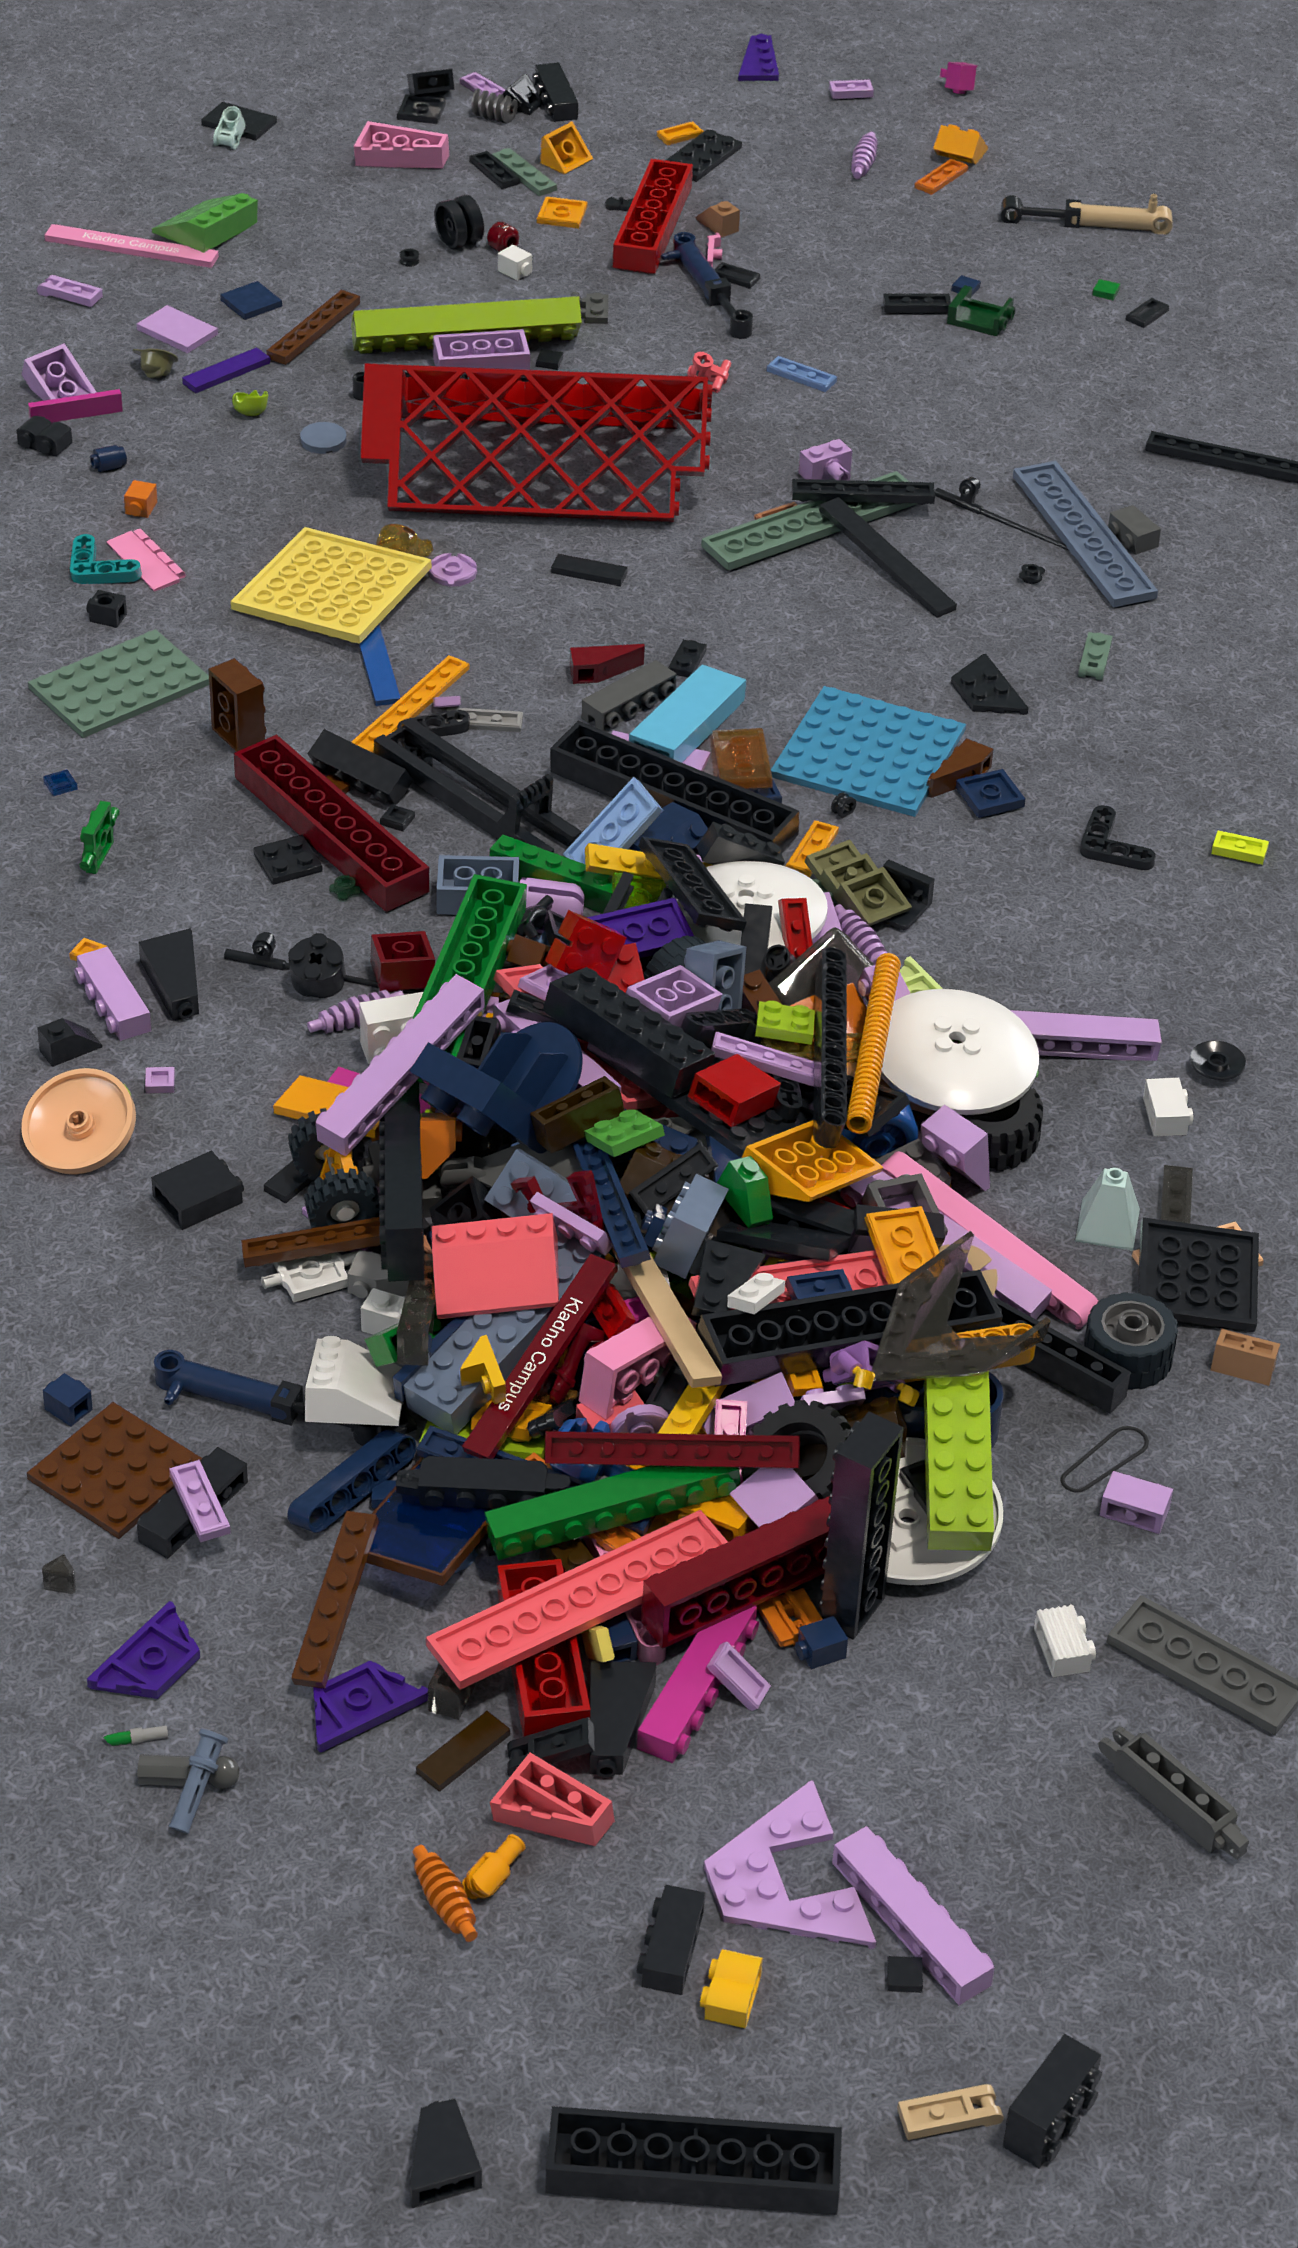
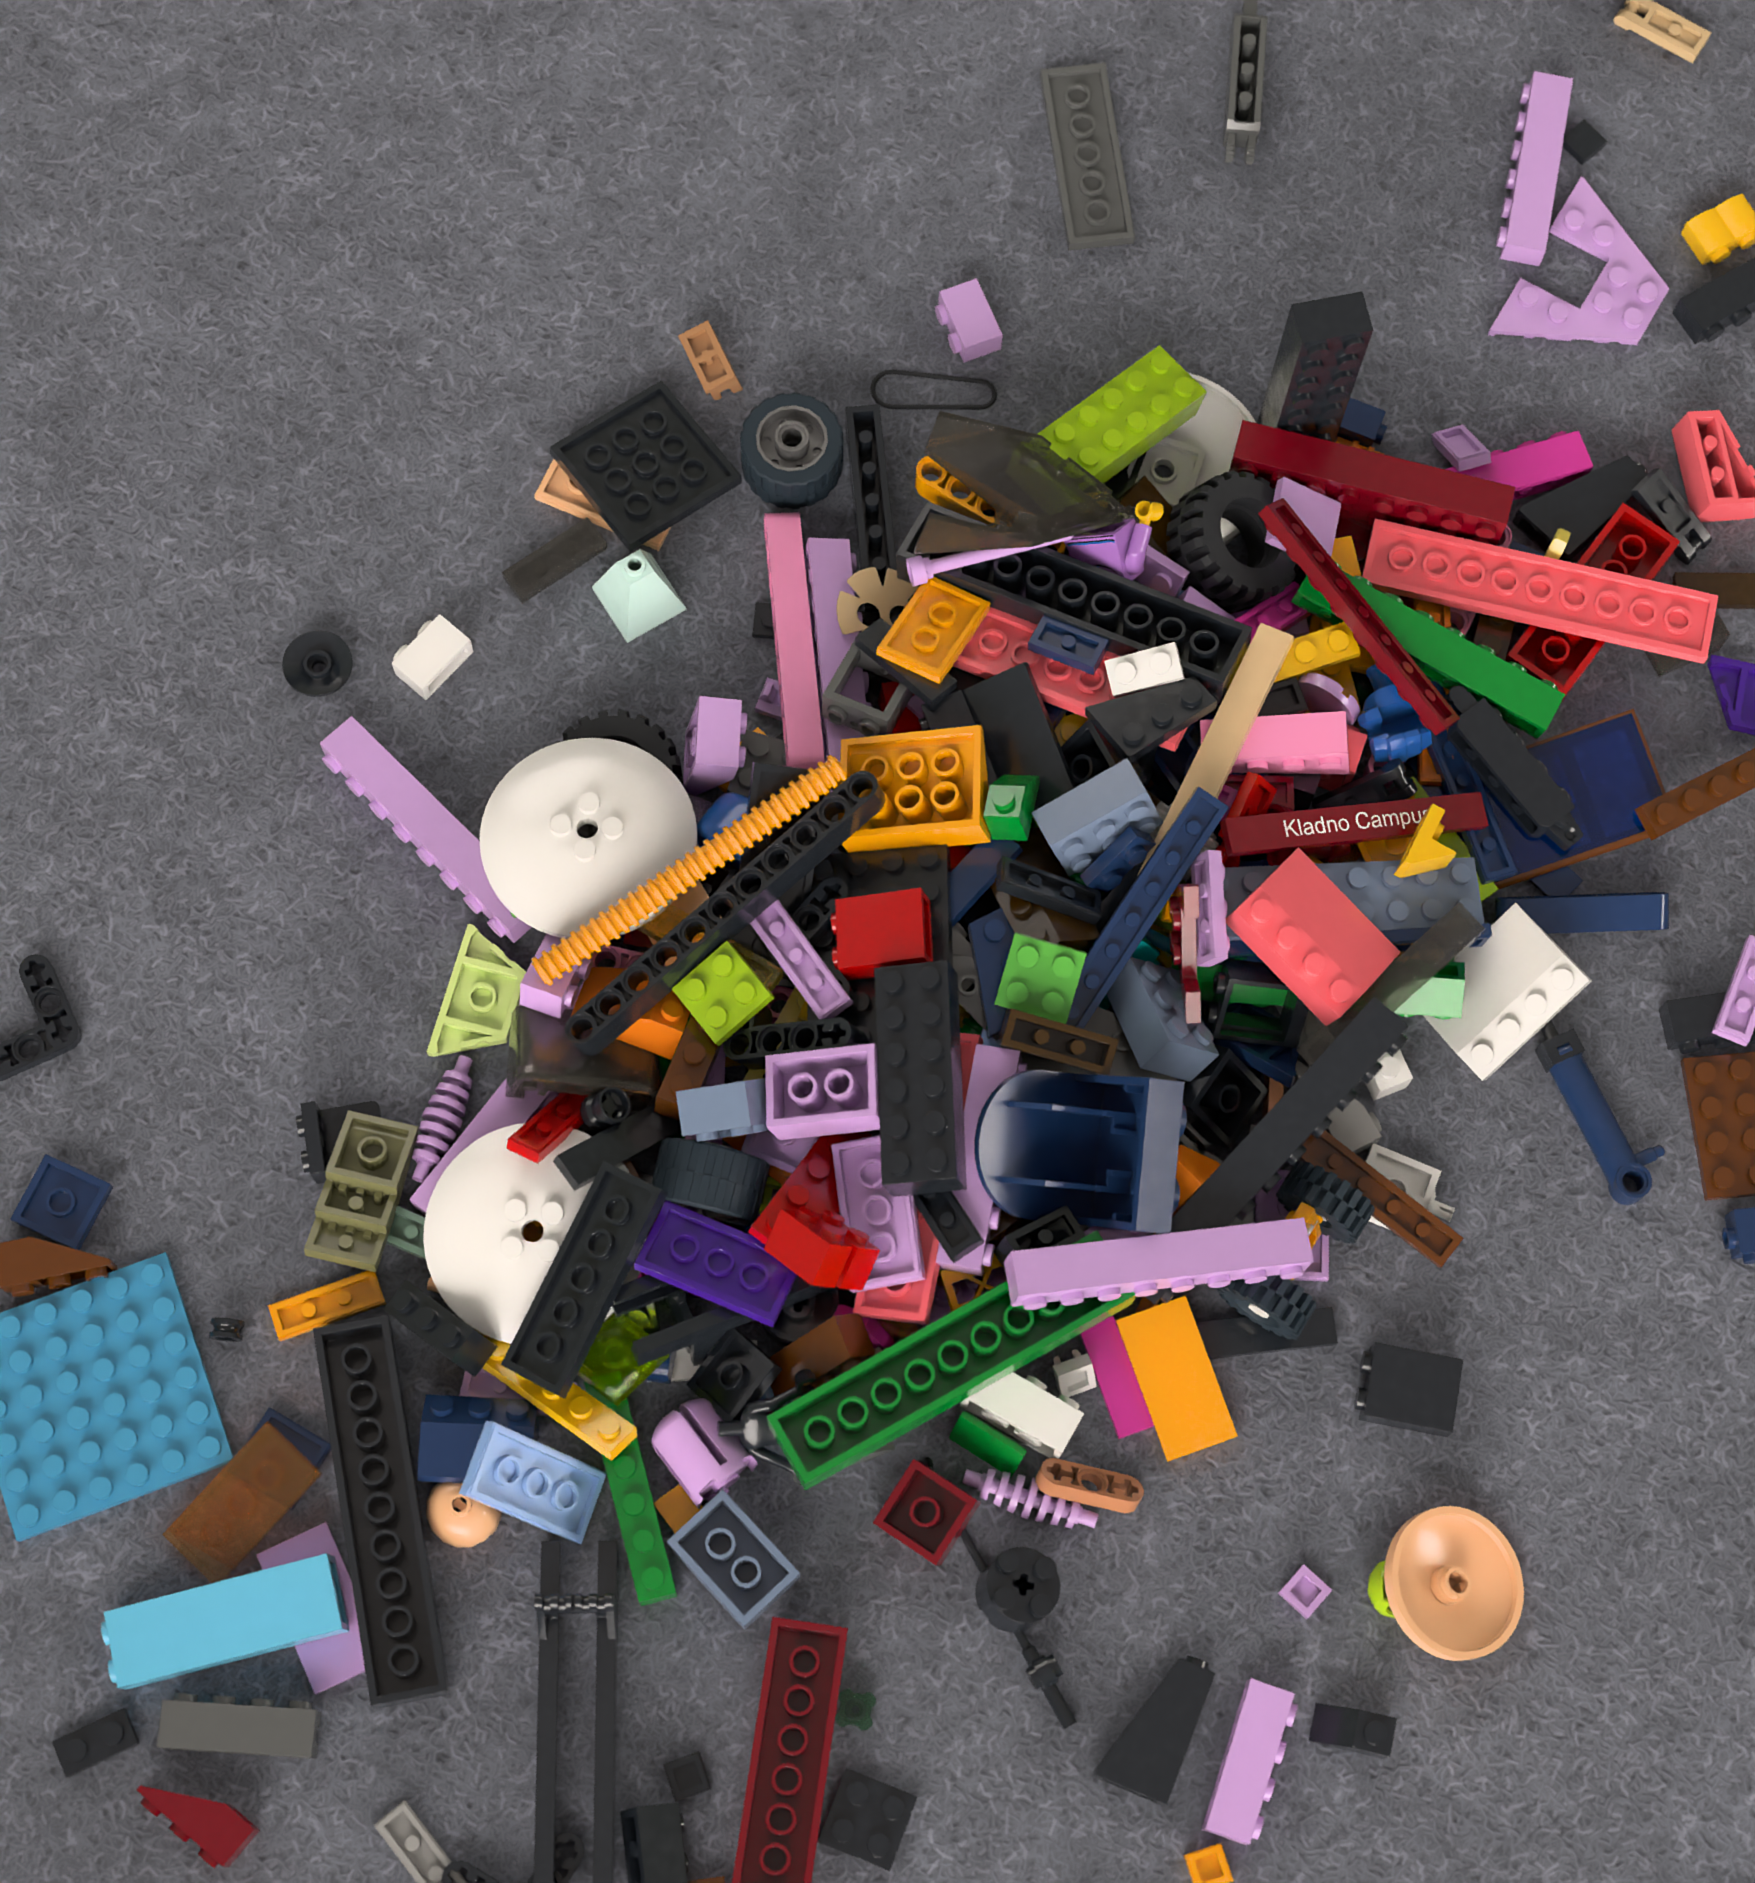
camera: 135 degrees left, 30 degrees up
(317, 1049) = (1122, 1494): none -> nougat beam
(1064, 1640) = (1172, 264): white brick -> none

